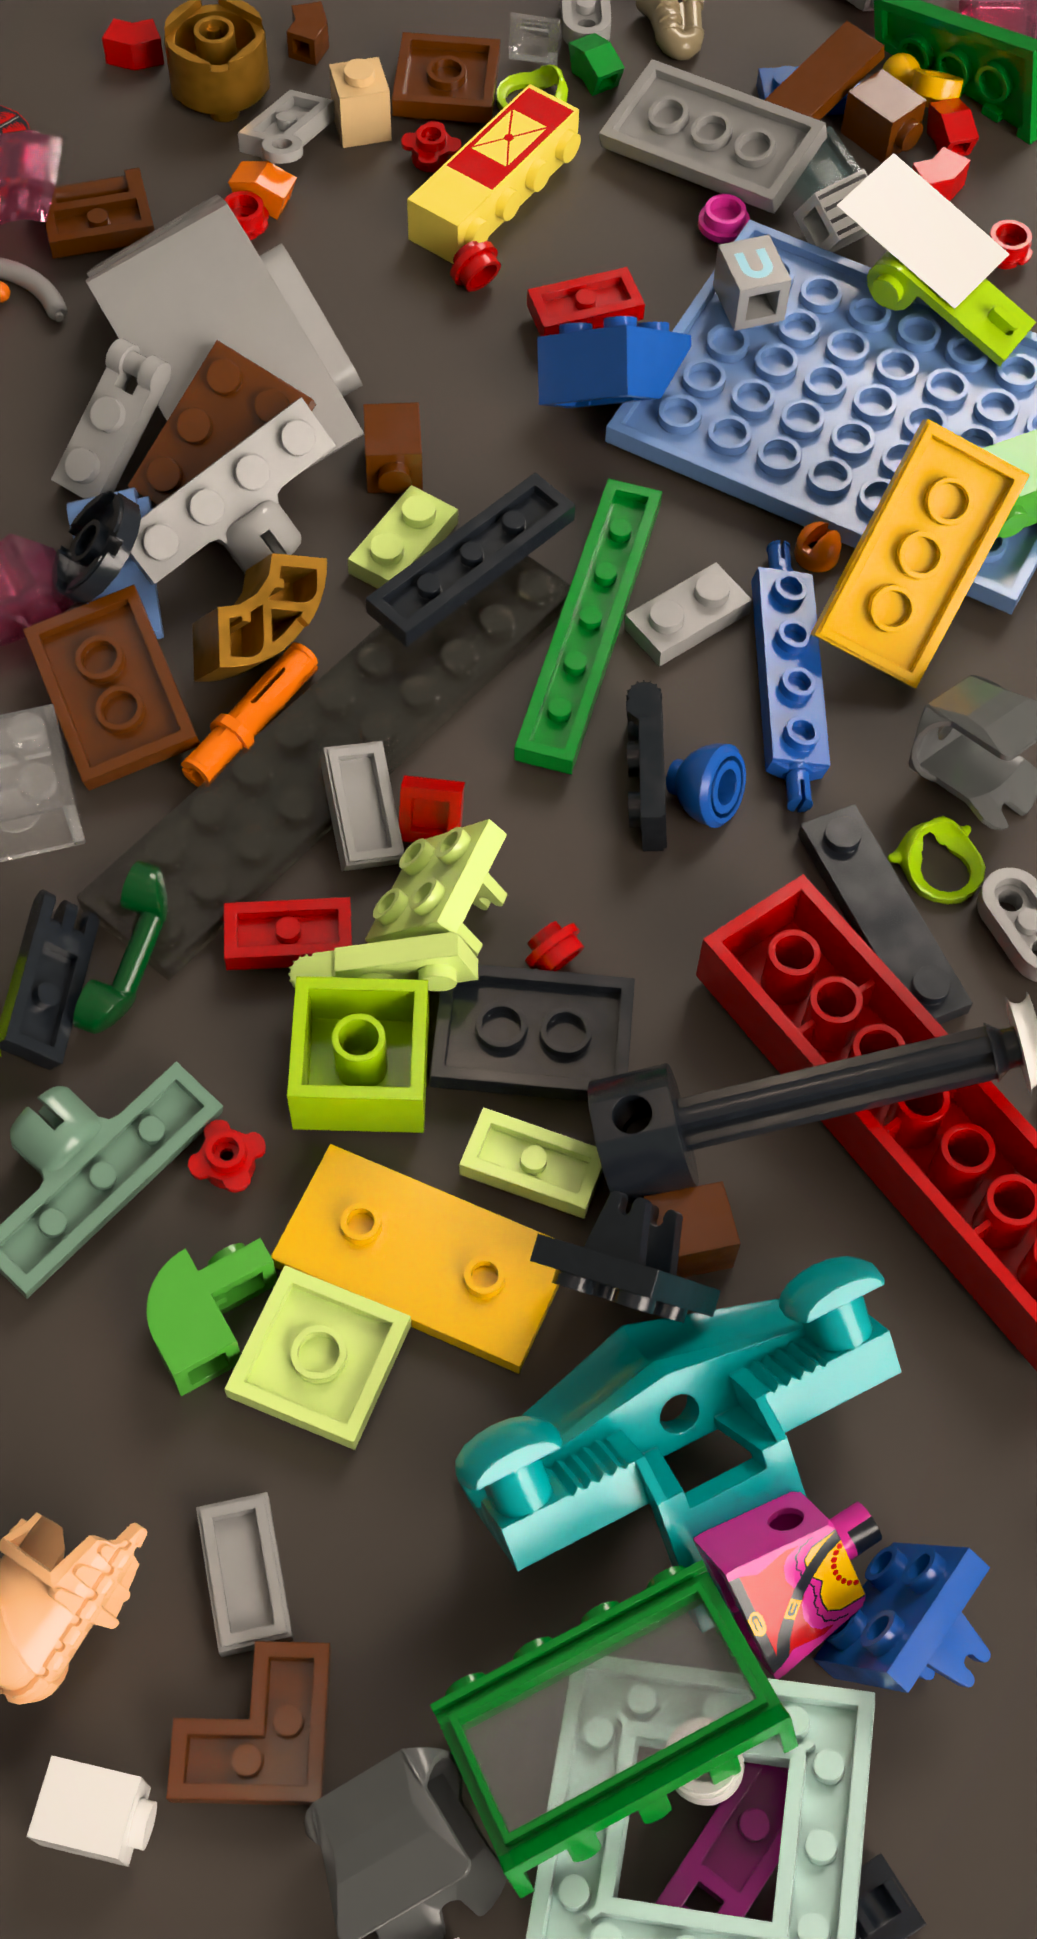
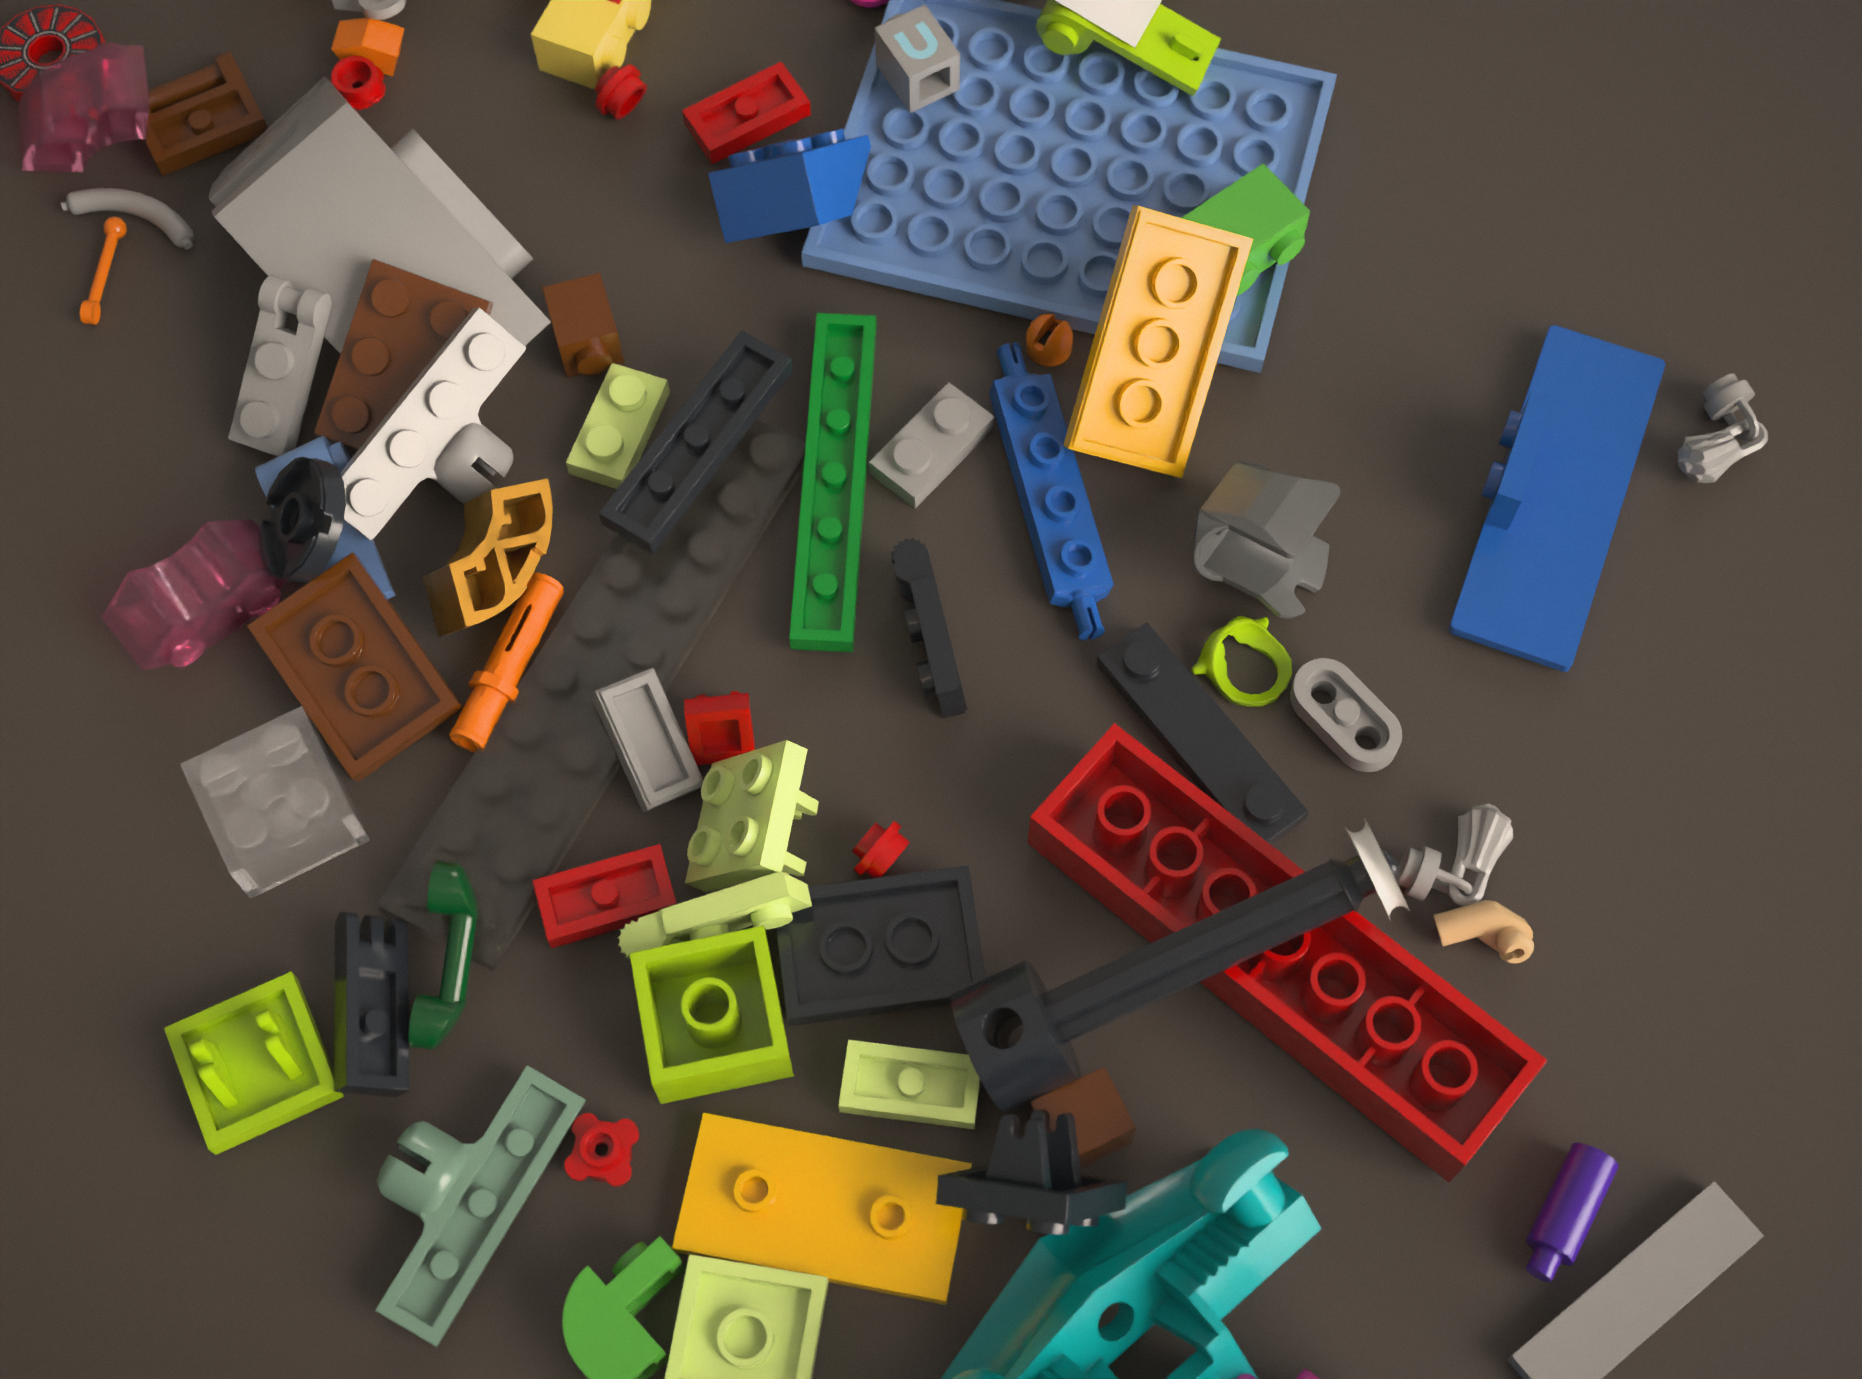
camera: 10 degrees left, 5 degrees up
(709, 783) = (995, 633): blue brick -> none

